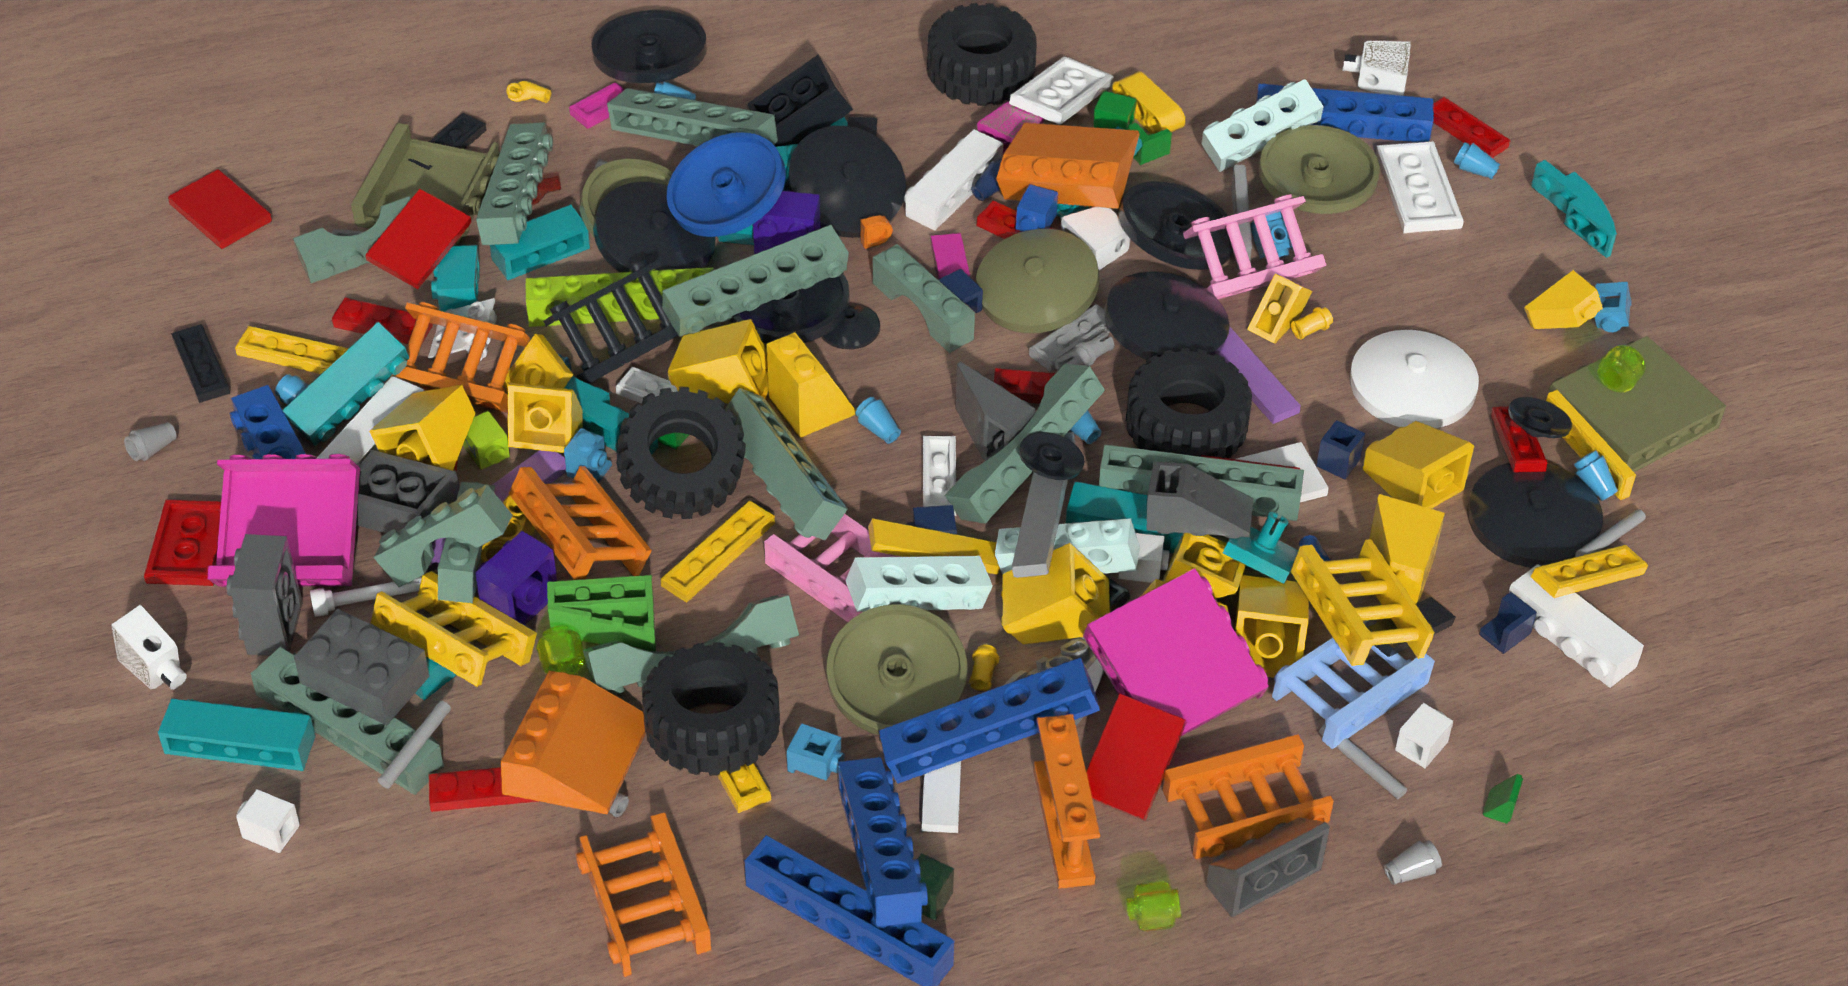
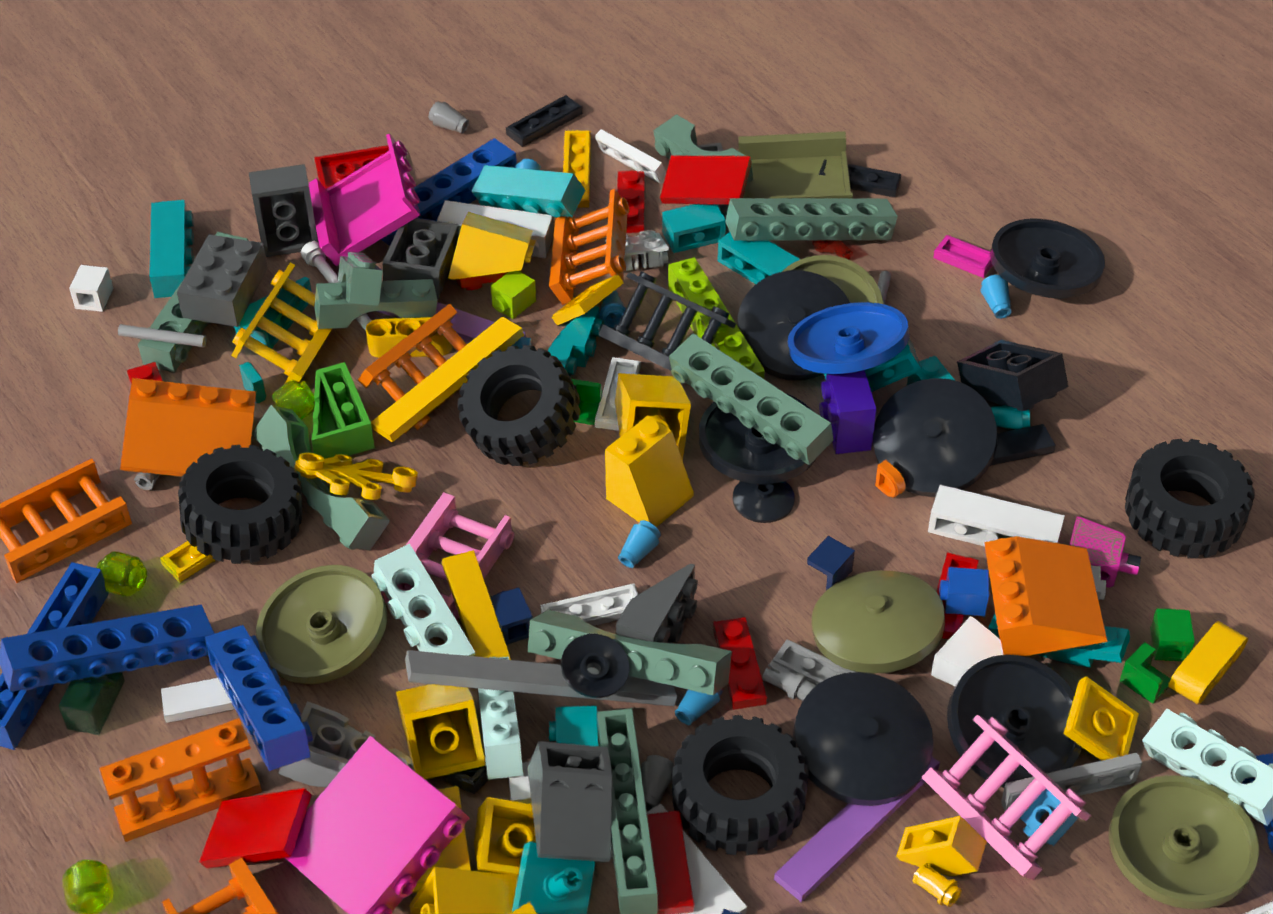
camera: 75 degrees right, 0 degrees up
(147, 650) = (229, 175): white torso -> none
(219, 209) = (715, 78): red tile -> none
(317, 300) = (631, 156): none -> white tile
(511, 685) = (253, 381): none -> teal tile
(518, 578) = (347, 340): dark purple brick -> none
(526, 90) = (952, 203): yellow arm -> none
(542, 417) = (536, 311): yellow slope -> none
(613, 501) = (445, 380): none -> yellow tile
(684, 119) = (951, 310): sand green brick -> none
(693, 632) = (314, 466): none -> yellow plant
(717, 551) = (449, 475): yellow tile -> none
(751, 830) = (123, 573): none -> clear neon green head
(786, 468) = (533, 480): sand green brick -> none
(814, 752) = (221, 598): dark azure brick -> none
(946, 316) = (829, 513): sand green arch -> none
(949, 254) = (887, 549): dark pink tile -> none
(984, 659) = (355, 694): yellow pin -> none
(1061, 90) = (1177, 578): white tile -> none
(1192, 179) = (1100, 721): none -> yellow tile

